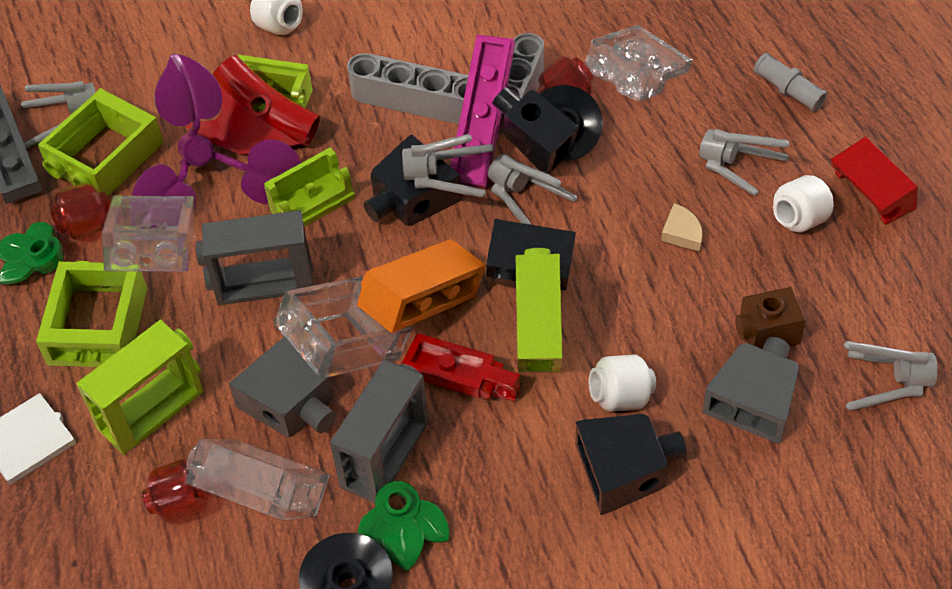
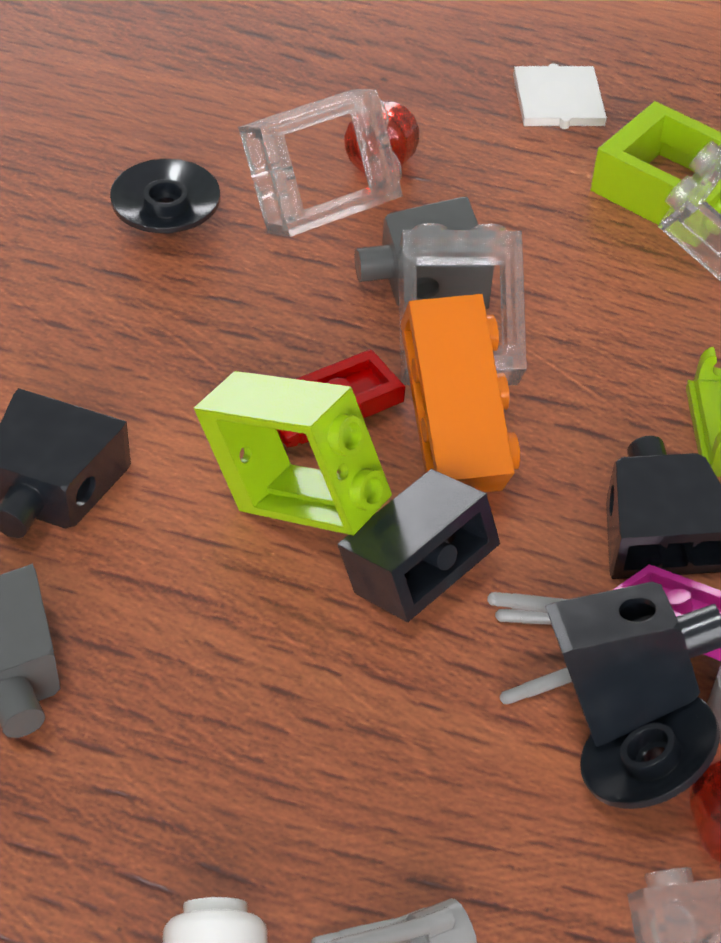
camera: 120 degrees right, 5 degrees down
(155, 402) = (525, 146): lime window -> none
(249, 236) = (631, 291): dark grey window -> none
(380, 430) = (290, 272): dark grey window -> none
(404, 530) = (182, 269): green plate -> none
(421, 162) = (654, 487): light grey plant -> none
(621, 383) = (144, 522): white head -> none
(682, 229) = (328, 780): tan tile -> none
(771, 315) = (65, 746): reddish brown brick -> none

